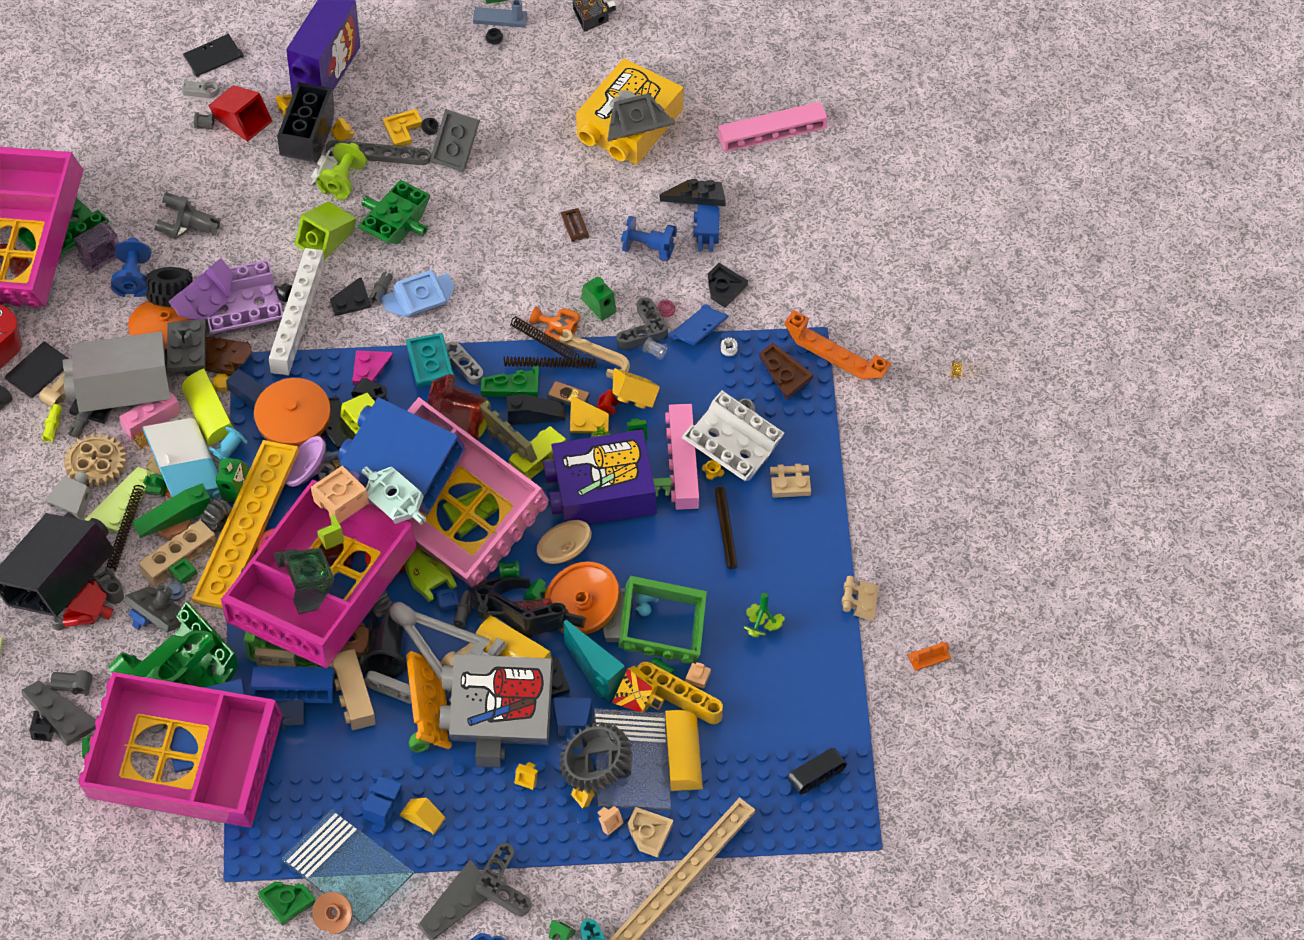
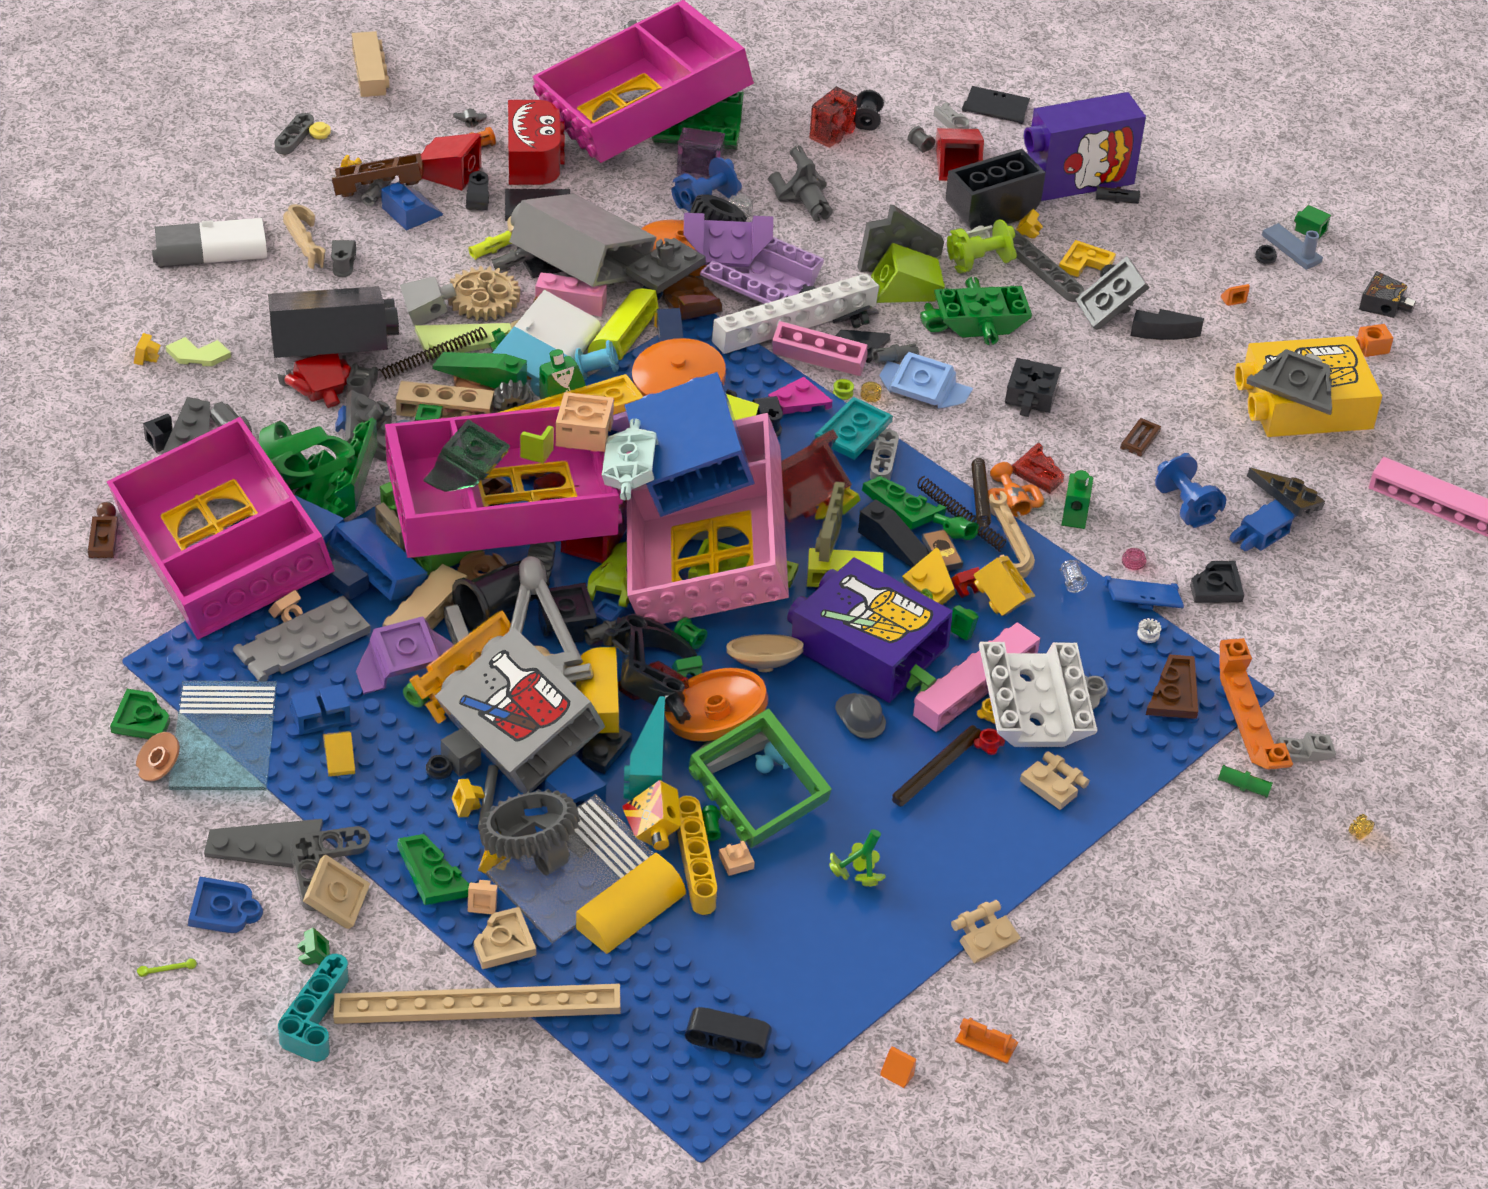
camera: 45 degrees right, 10 degrees down
(100, 817) = (103, 532): none -> reddish brown plate
(140, 150) = (833, 117): none -> clear red piece
(143, 121) = (868, 105): none -> black hose
(163, 260) = (742, 202): none -> clear gear
(276, 762) = (286, 605): none -> light nougat tile
(301, 202) = (897, 229): none -> dark grey wing
(309, 771) = (303, 639): none -> light grey hinge
(330, 276) = (854, 316): none -> black piece
(340, 323) = (819, 348): none -> bright pink brick
(371, 244) = (932, 319): none -> green piece
(372, 58) = (1117, 194): none -> black pin
(383, 728) = (398, 651): none -> medium lavender piece
(386, 340) = (843, 384): none -> lime bush
(396, 330) = (871, 386): none -> clear yellow bush
(436, 609) = (575, 608): none -> black panel
(484, 243) = (1032, 386): none -> black hinge
(484, 768) = (439, 767): none -> black plate
(501, 136) = (1166, 325): none -> black slope
(512, 80) = (1236, 295): none -> orange slope
(527, 758) = (489, 791): none -> dark grey piece
(533, 890) = (336, 892): none -> tan plate
(551, 295) = (1038, 469): none -> clear red wing
(559, 373) = (957, 526): none -> green piece
(569, 833) = (430, 871): none -> green wing
(620, 47) = (1374, 340): none -> orange brick
(625, 338) = (1062, 551): dark grey beam -> none
(651, 533) = (861, 715): none -> dark grey piece
(733, 484) = (989, 741): none -> red plate
(874, 393) = (1245, 781): none -> green pin
(880, 345) = (1310, 748): none -> light grey slope
(909, 710) = (898, 1067): none -> orange slope

